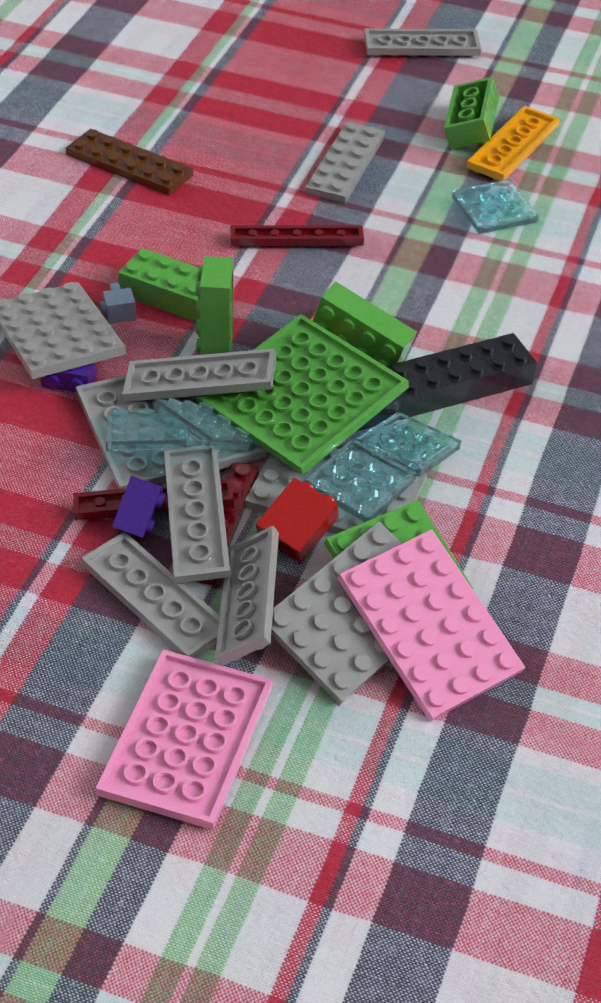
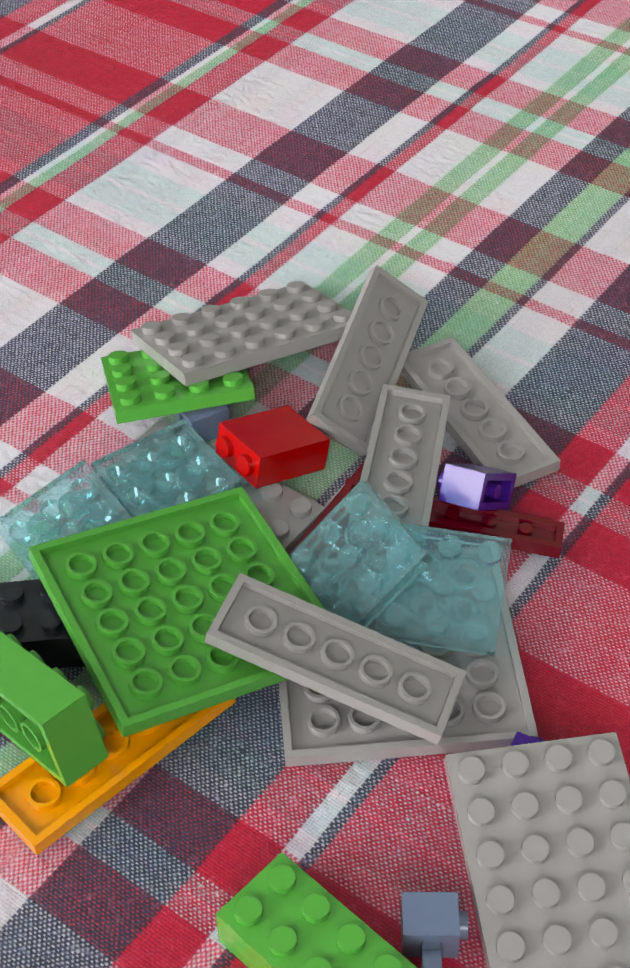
camera: 160 degrees left, 0 degrees up
(185, 739) = (479, 277): bright pink plate -> none
(215, 305) = (268, 761): bright green brick -> none
(431, 624) = (179, 305): bright pink plate -> none

